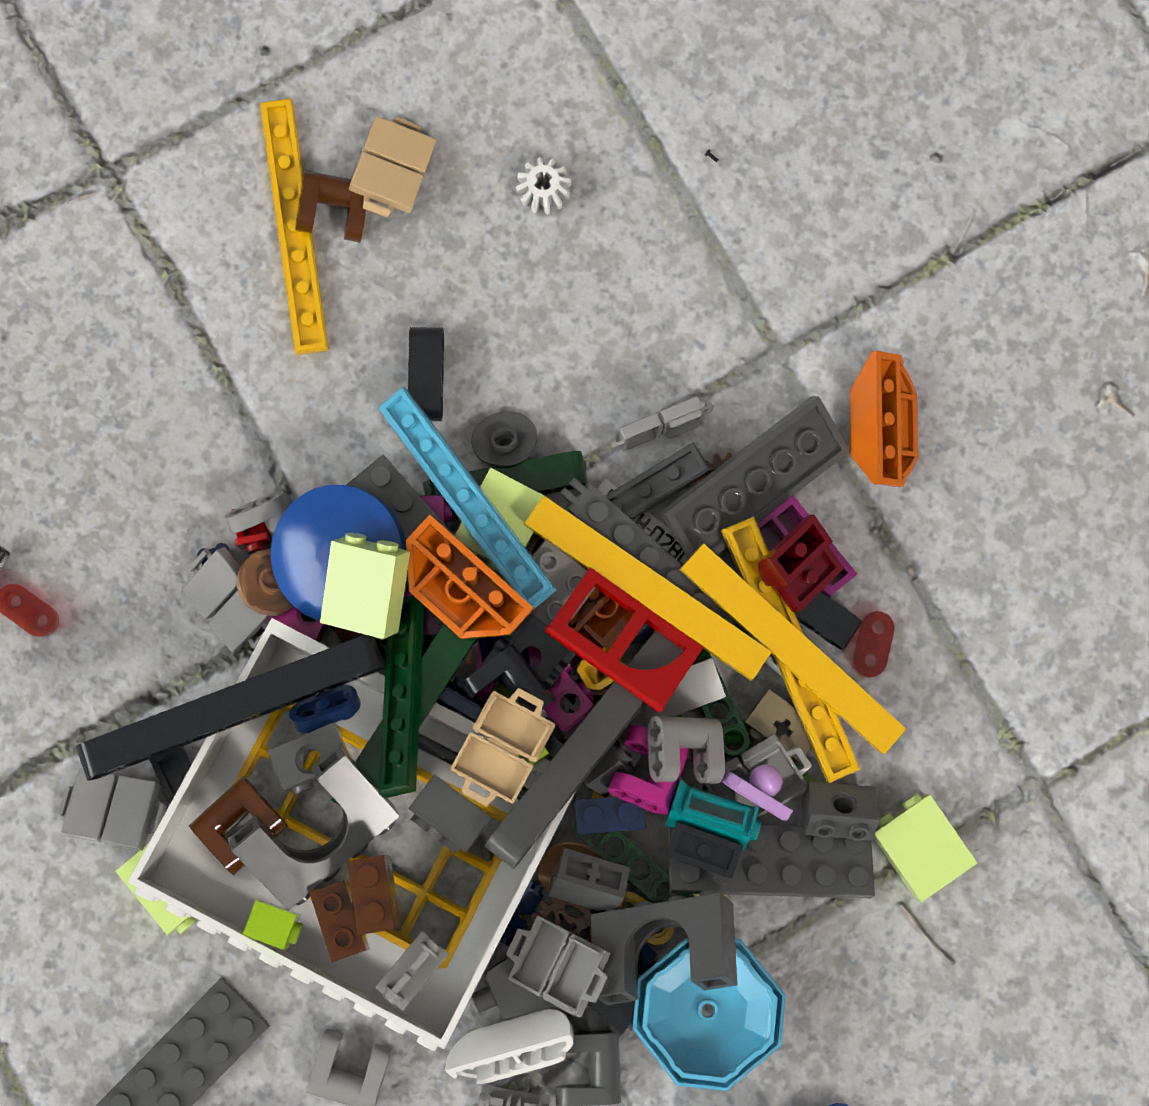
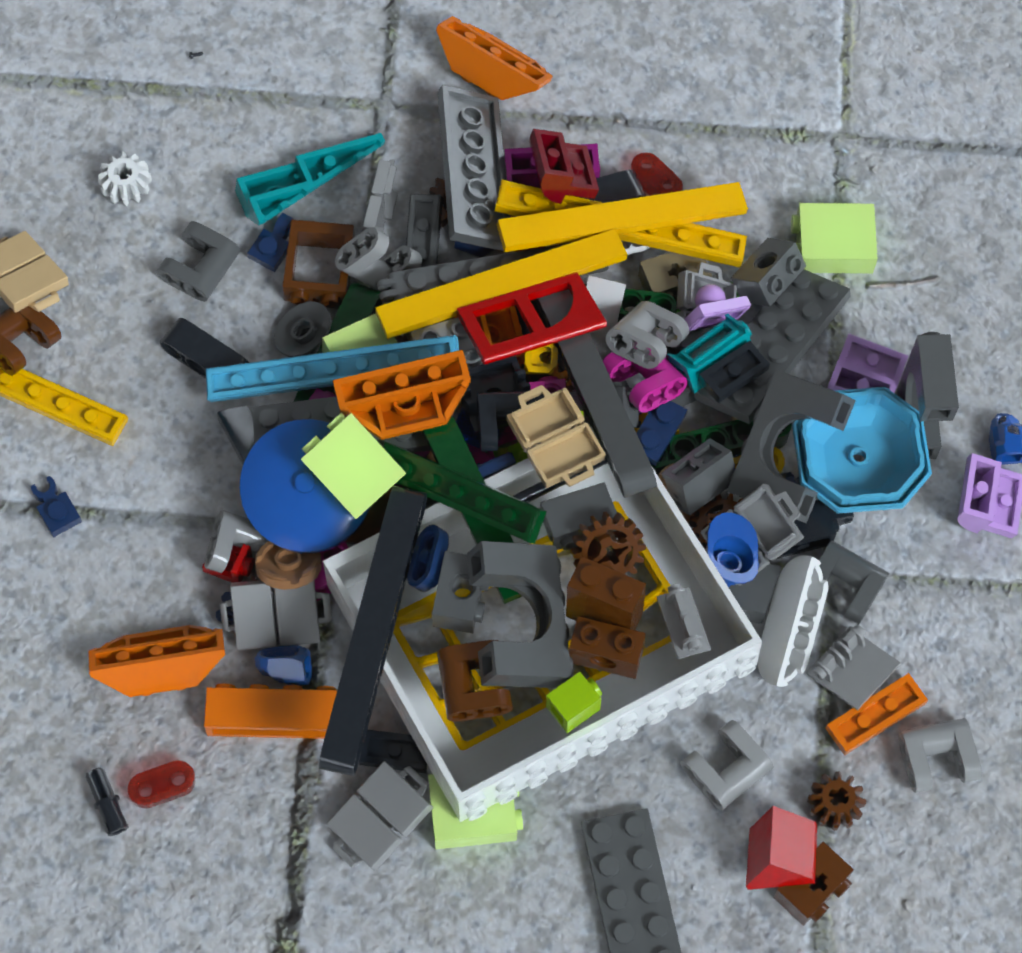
camera: 60 degrees left, 15 degrees down
(126, 529) = (157, 660): none -> orange wedge
(143, 654) = (268, 711): none -> orange brick
(193, 639) = (285, 664): none -> blue rock
(206, 353) = (56, 509): none -> dark blue plate
(379, 442) = (238, 428): none -> black slope
(429, 862) = (623, 544): none -> reddish brown gear
(509, 319) = (217, 259): none -> dark grey connector
(525, 962) = (733, 548): none -> blue piece
(567, 355) = (272, 247): none -> dark blue plate
(600, 455) = (363, 253): none -> light grey connector
(605, 388) = (315, 235): none -> reddish brown window
(629, 325) = (274, 190): none -> teal wedge
(802, 961) = (867, 366): none -> lavender brick
(808, 1038) = (931, 385): none -> dark grey arch

